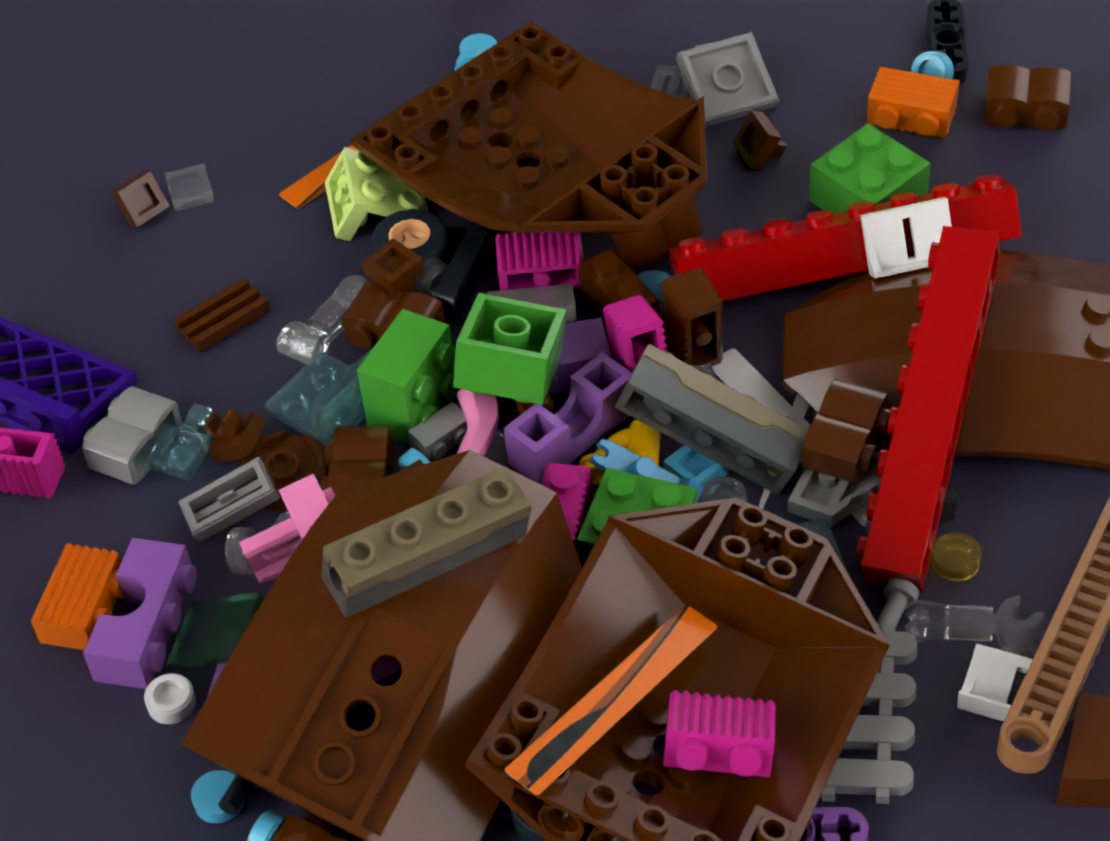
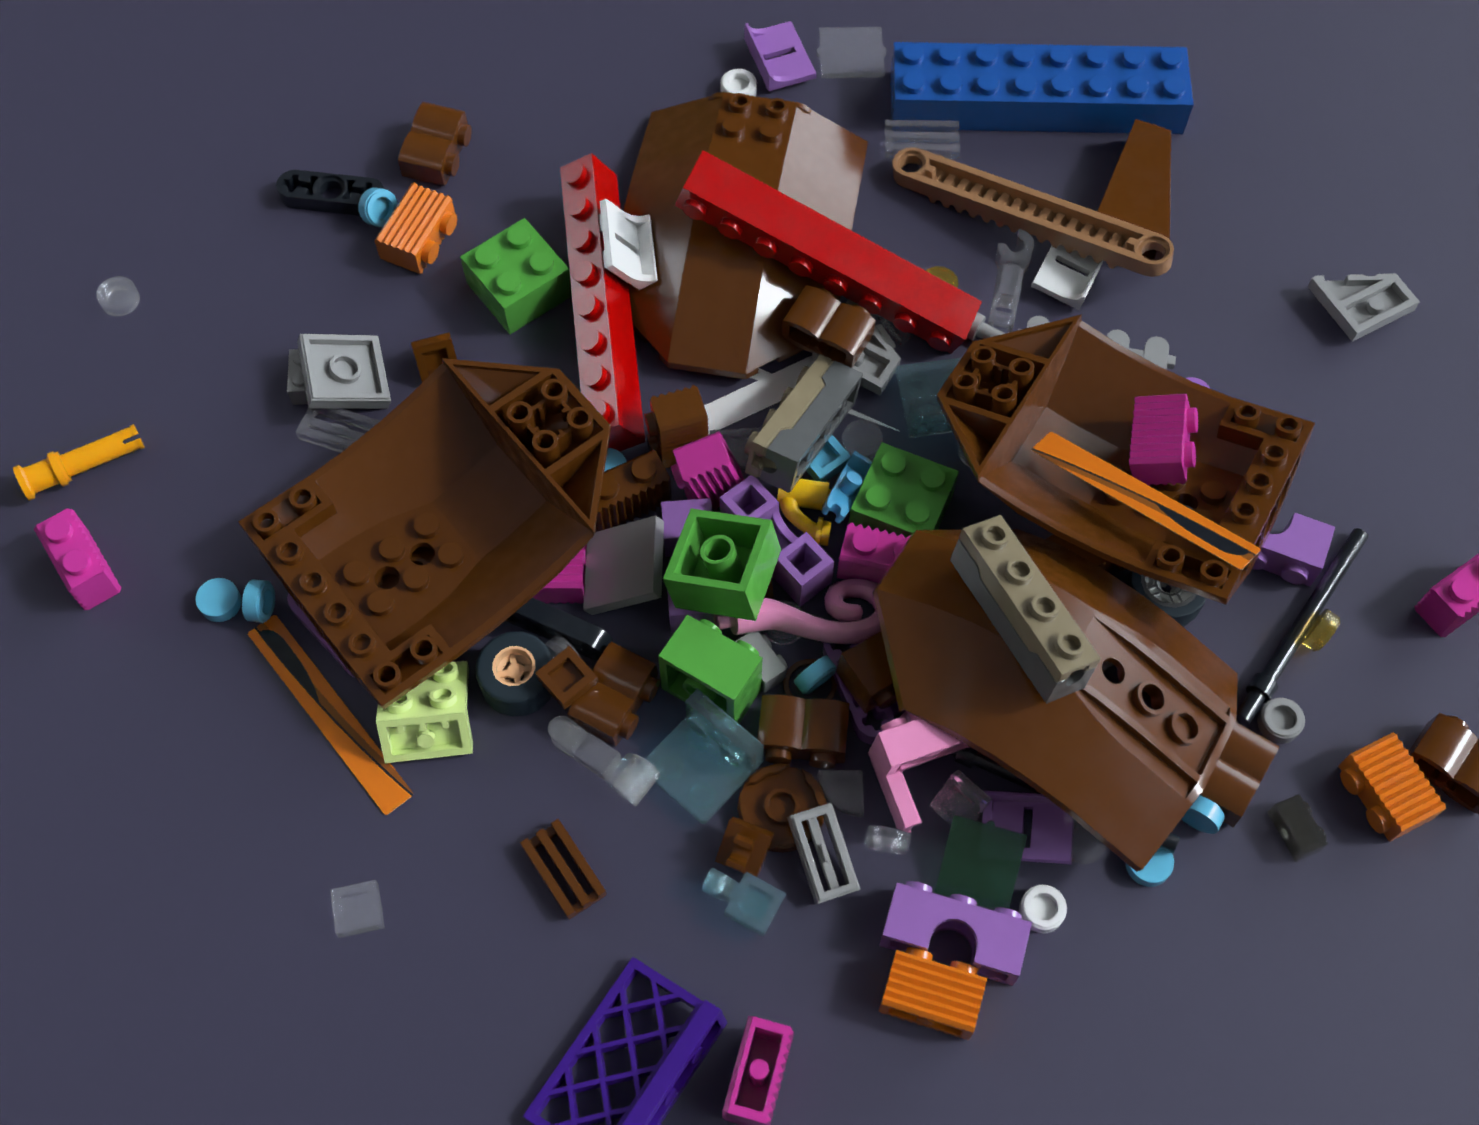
camera: 90 degrees left, 15 degrees up
(128, 434) = (726, 952): light grey brick -> none
(140, 198) = (375, 958): reddish brown tile -> none

